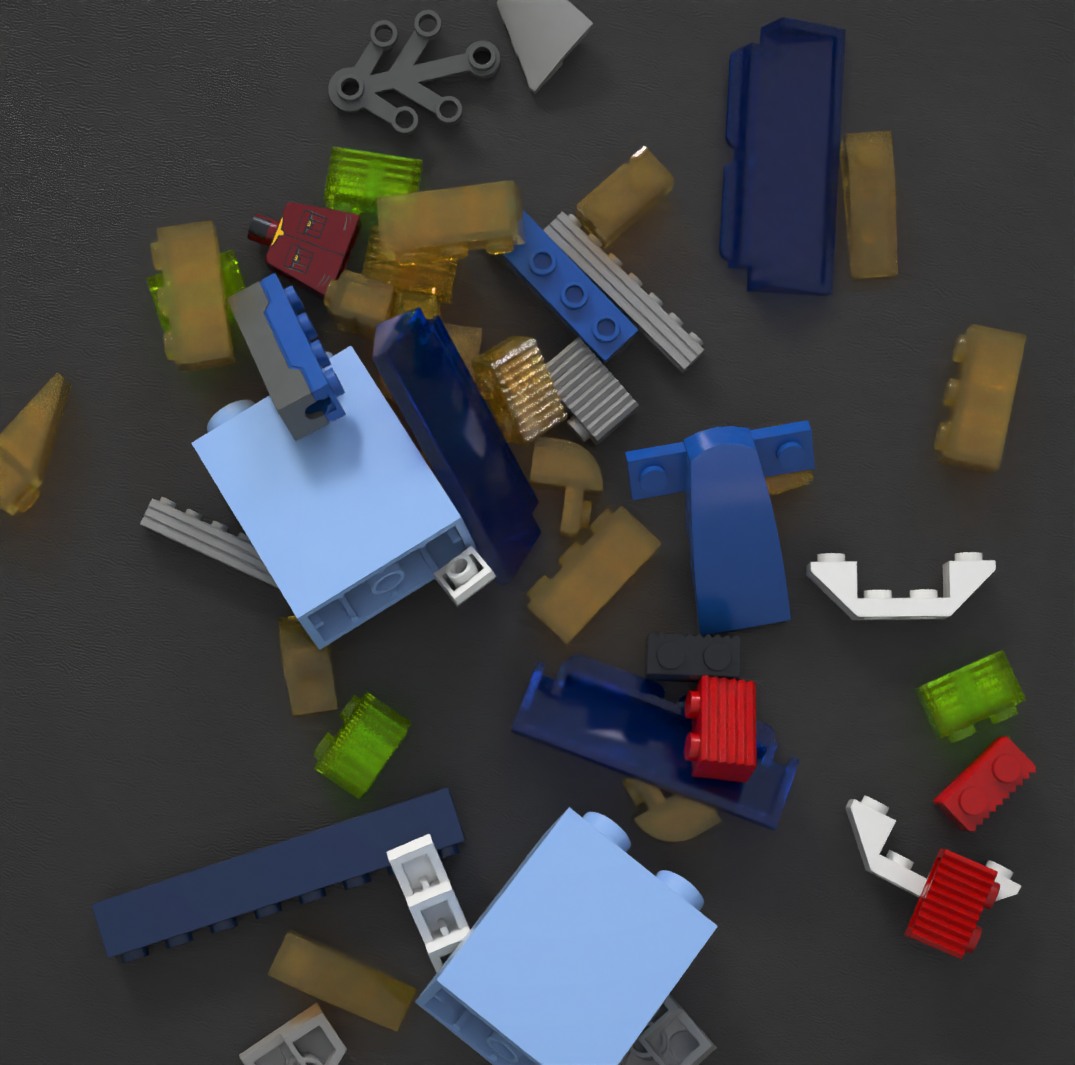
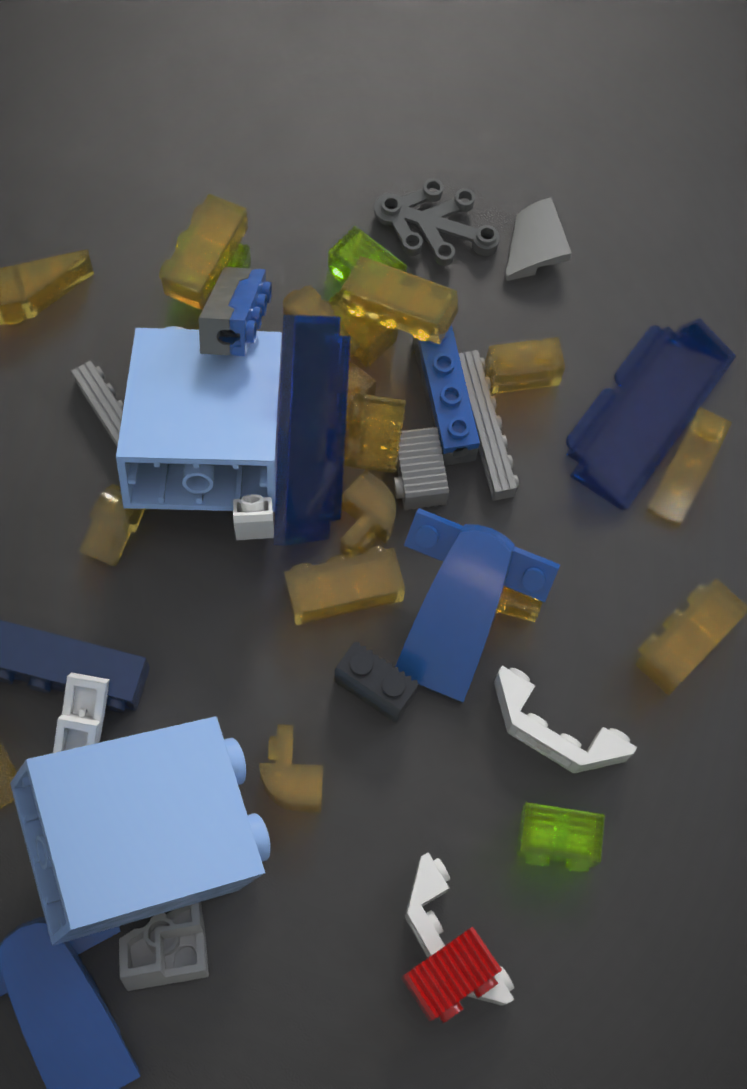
camera: 30 degrees right, 15 degrees down
(307, 244) = (301, 266): dark red torso -> none
(361, 745) = (110, 597): clear neon green brick -> none
(636, 732) = (306, 710): clear blue slope -> none
(722, 729) = (364, 739): red brick -> none
(985, 784) = (532, 907): red brick -> none

